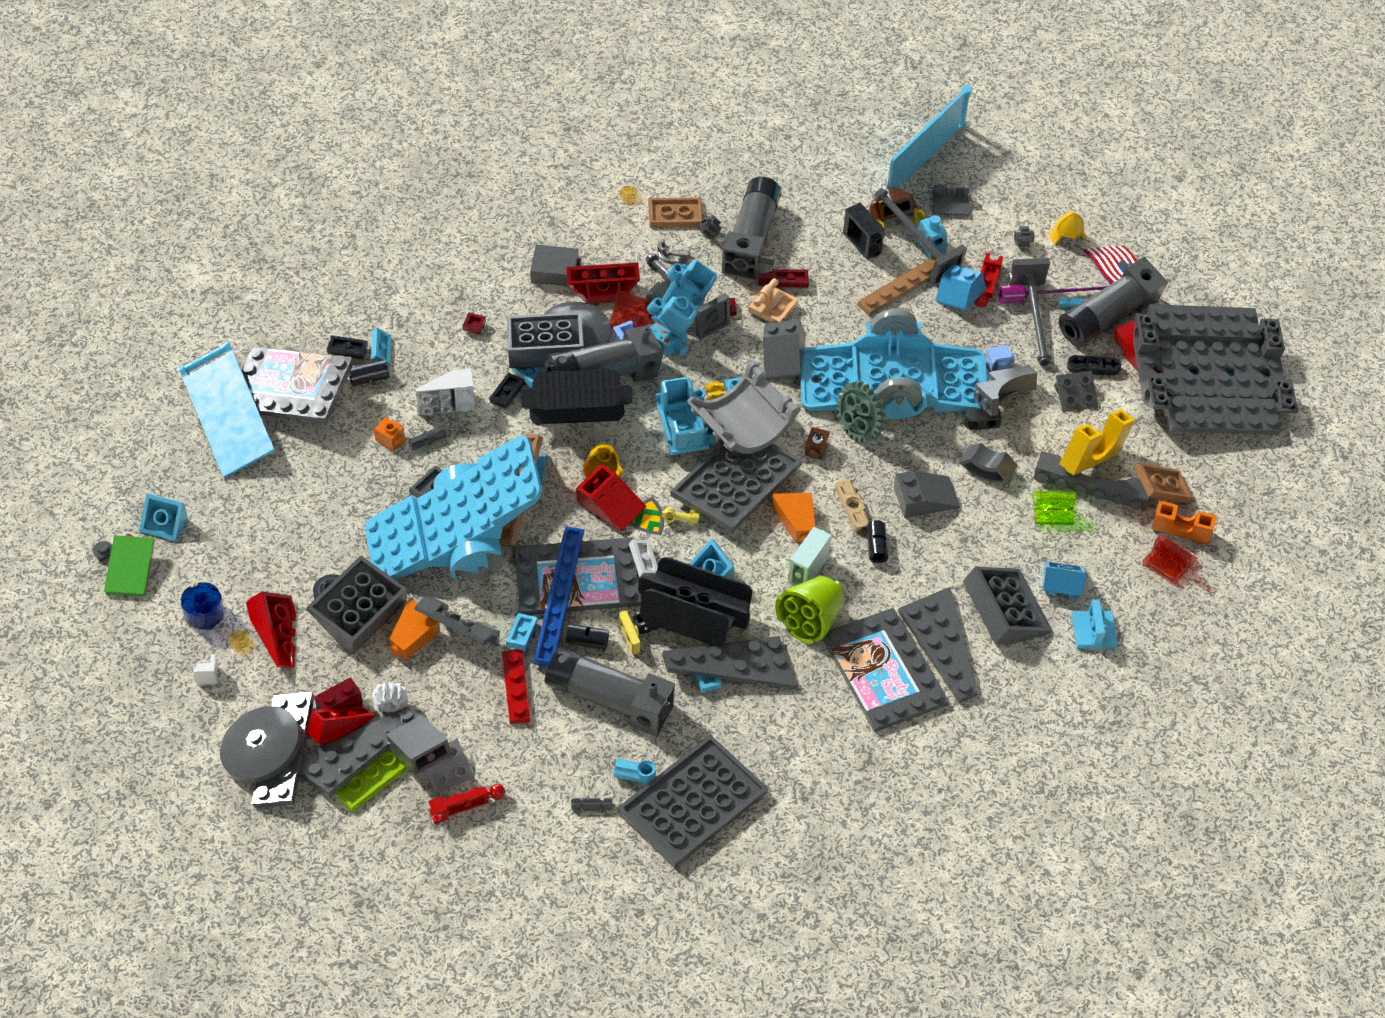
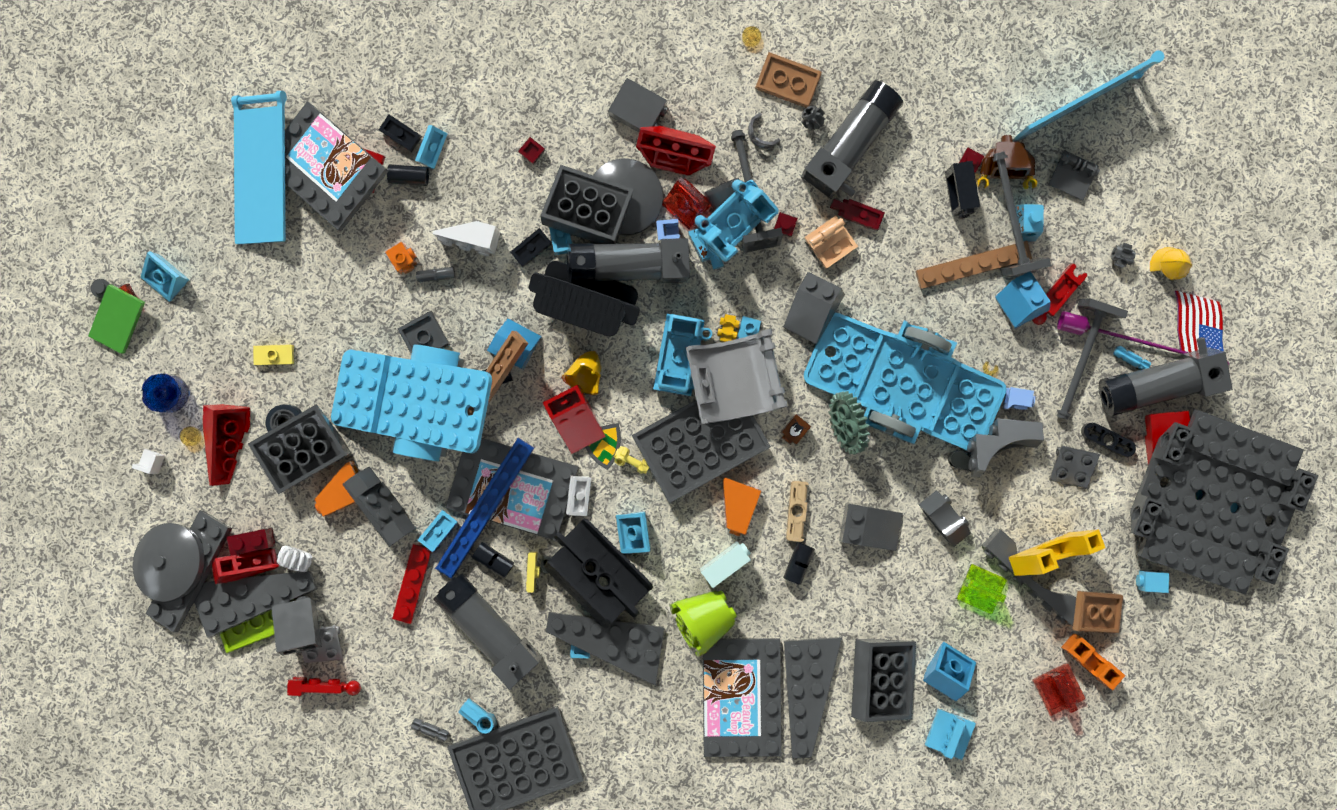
camera: 25 degrees right, 35 degrees up
(296, 548) = (273, 355): none -> light yellow plate
(1197, 449) = (1153, 581): none -> medium azure brick

